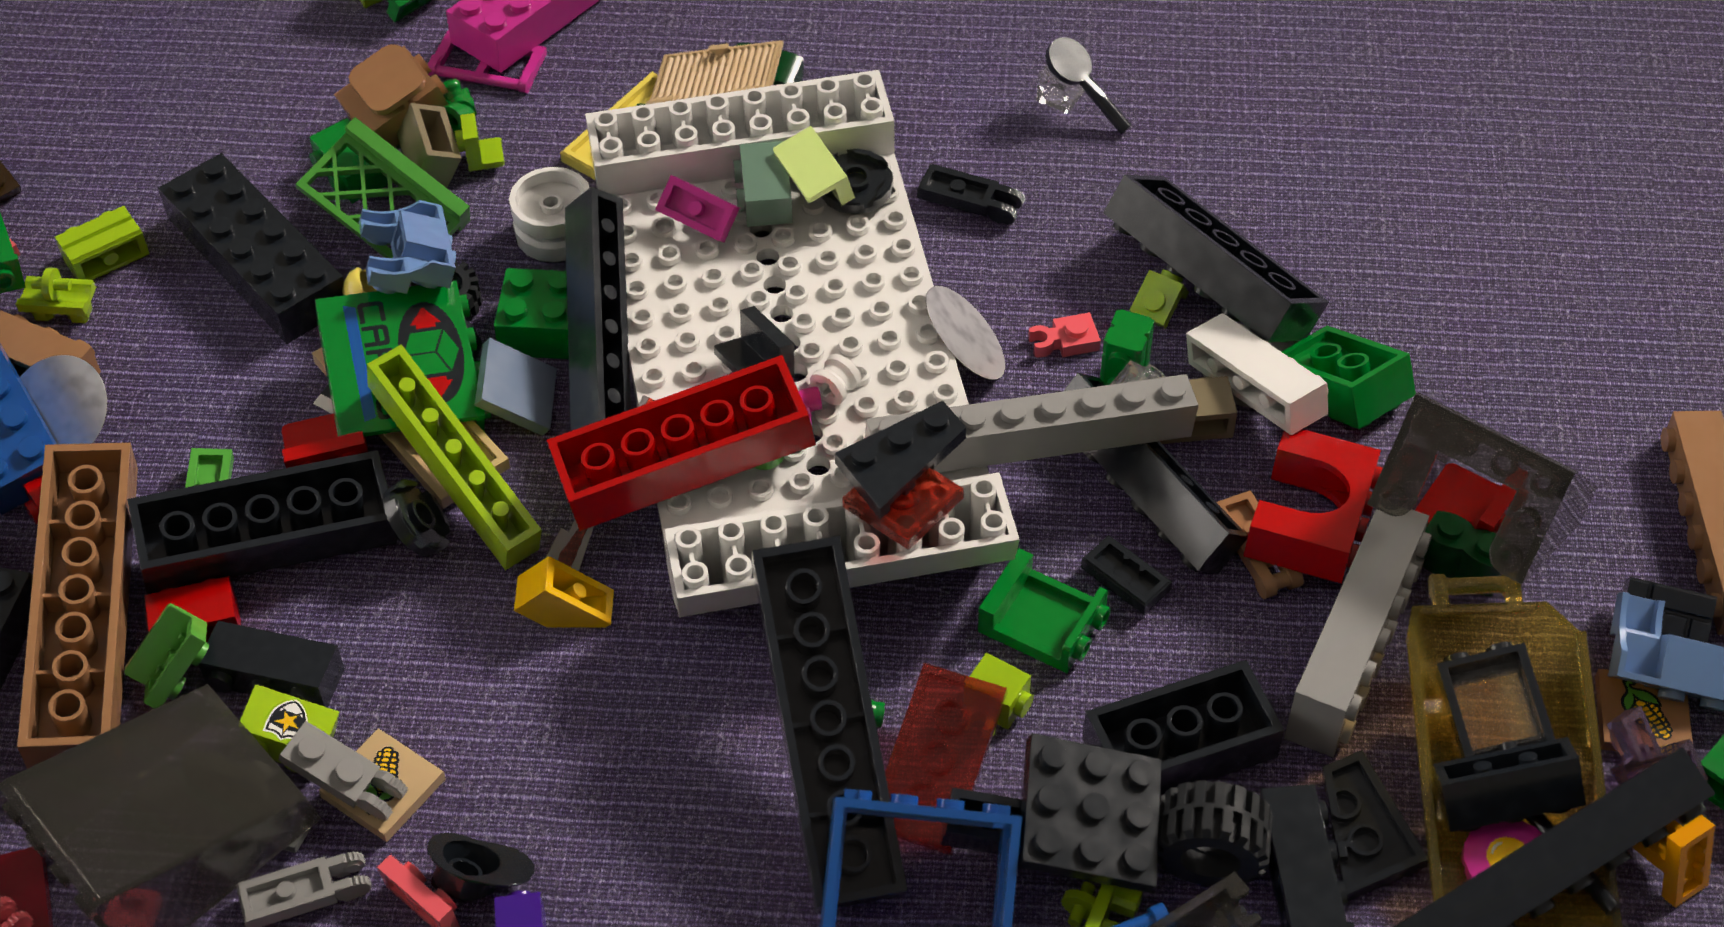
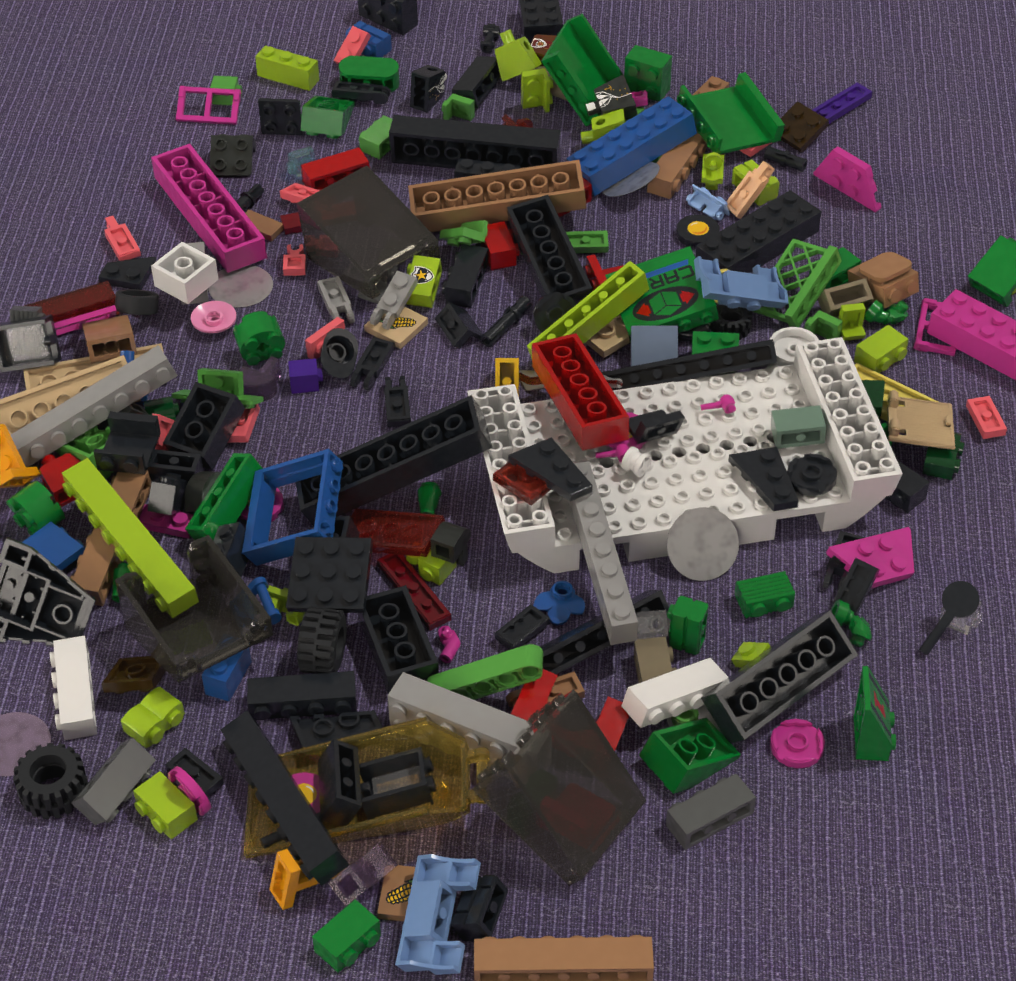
camera: 90 degrees right, 5 degrees down
(55, 194) = (785, 158): none -> black pin
(127, 121) = (850, 177): none -> dark pink wing
(140, 243) = (749, 189): none -> light nougat hinge
(148, 301) = (715, 206): none -> light blue hinge
(204, 331) = (696, 229): none -> black tile
(367, 583) = (510, 316): none -> black pin
(407, 680) = (457, 325): none -> black panel
(478, 179) = (824, 325): none -> bright green bracket
(490, 816) = (372, 362): none -> black hinge
(540, 119) = (881, 349): none -> lime brick
(598, 770) = (397, 403): none -> black hinge
(689, 25) = (986, 417): none -> coral plate
(697, 208) = (773, 396): dark pink plate -> none
(701, 269) = (725, 402): none -> dark pink hand
(813, 167) = (804, 442): yellowish green panel -> none
(850, 231) = (768, 475): none -> black wing
(968, 151) = (886, 551): none -> dark pink wing
(981, 649) = (450, 543): none -> pearl dark grey brick
(1030, 175) = (857, 584): none -> black plate
(1041, 614) = (495, 586): green panel -> none
(1043, 278) = (765, 594): none -> green brick
(1058, 719) = (427, 604): none -> dark red tile
(1070, 334) = (721, 612): coral plate -> none
(1070, 530) = (560, 602): none -> blue plate
(1077, 198) = (858, 626): none -> green arm
(1160, 673) = (450, 642): none -> dark pink arm
(1271, 594) = (493, 673): none -> bright green beam
(1279, 168) = (872, 720): none -> green slope
(1305, 259) = (797, 743): none -> dark pink tile
(1441, 354) = (710, 811): none -> dark grey brick

